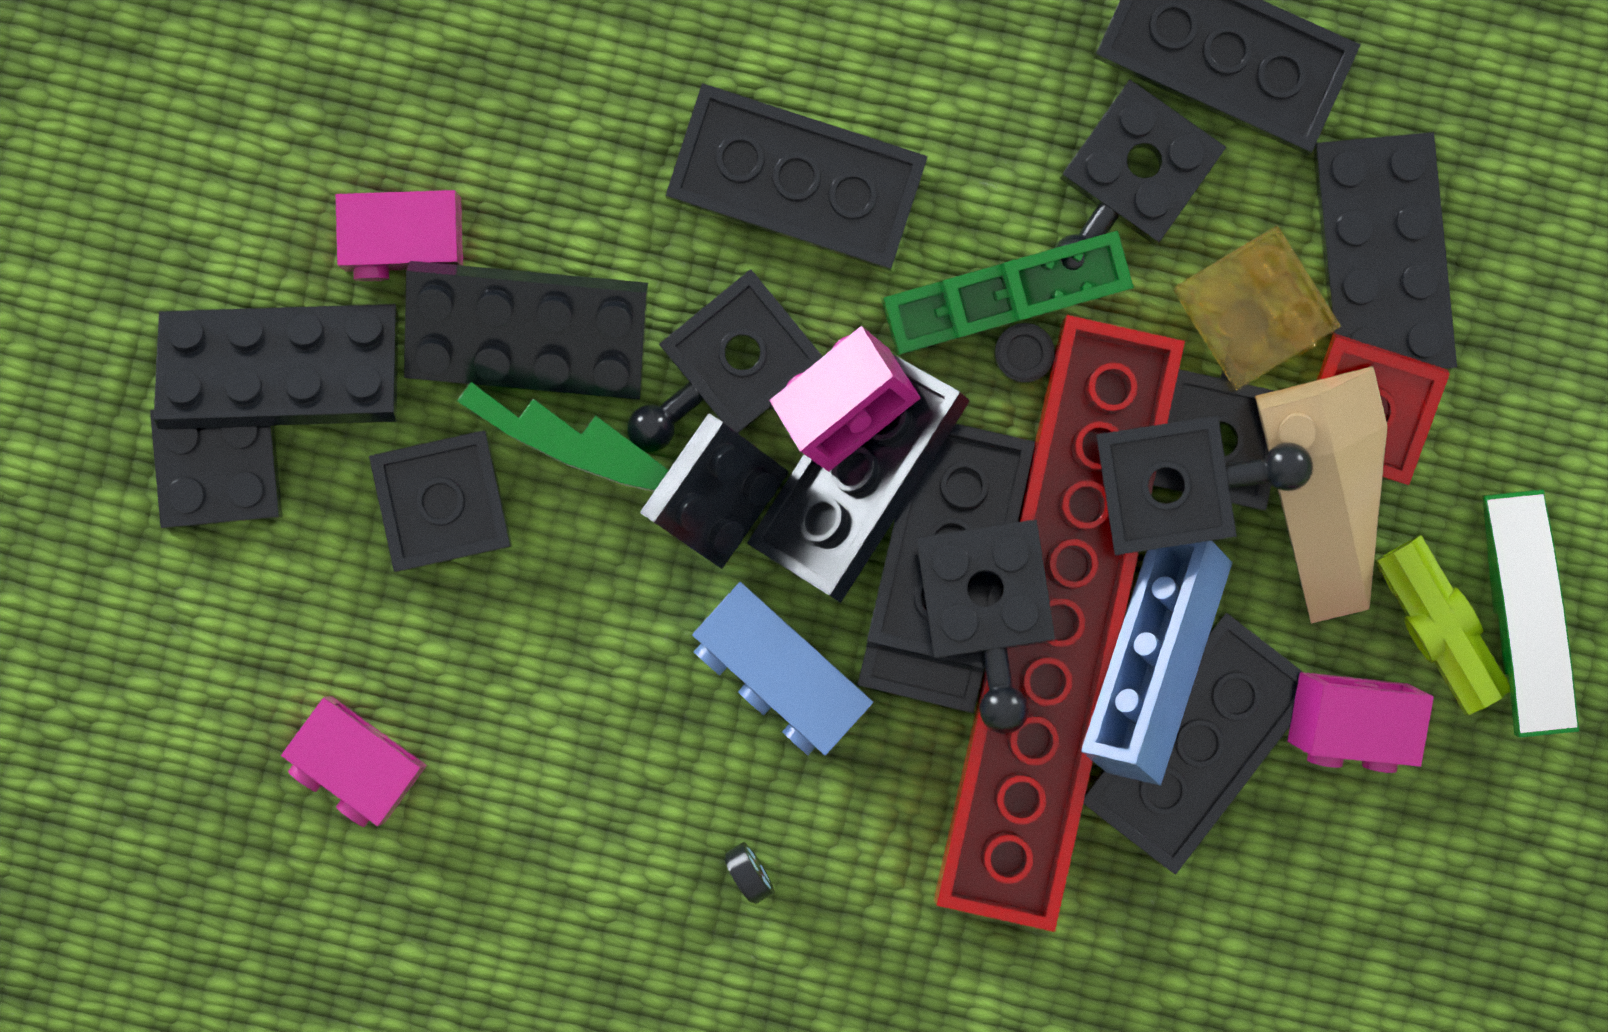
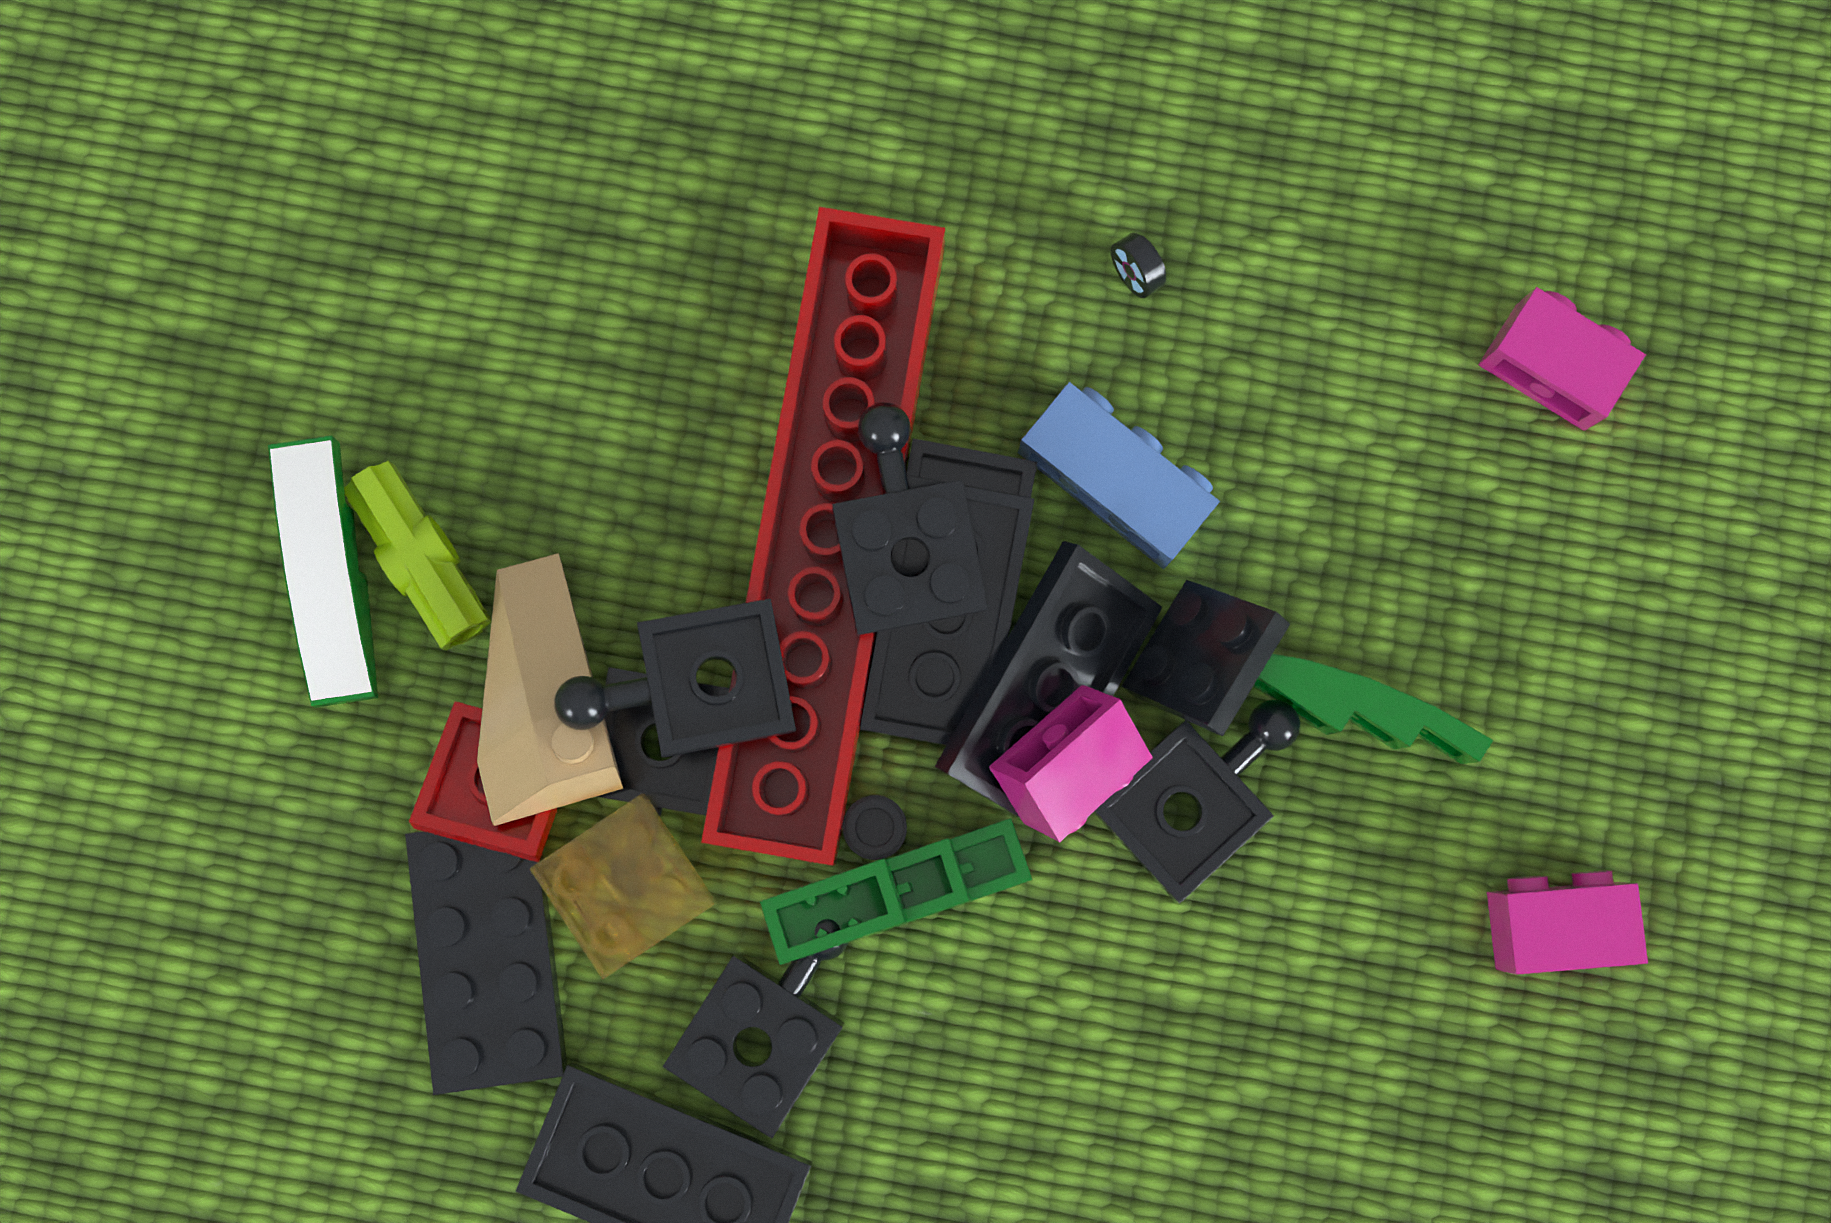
camera: 175 degrees right, 5 degrees down
(215, 475) = (1734, 665): black plate -> none
(276, 366) = (1685, 771): black plate -> none
(440, 501) = (1493, 635): black plate -> none
(525, 330) = (1422, 824): black plate -> none
(796, 177) = (1135, 1010): black plate -> none
(1156, 660) = (721, 493): medium blue brick -> none
(1228, 728) = (672, 421): black plate -> none
(1360, 721) = (502, 446): dark pink brick -> none

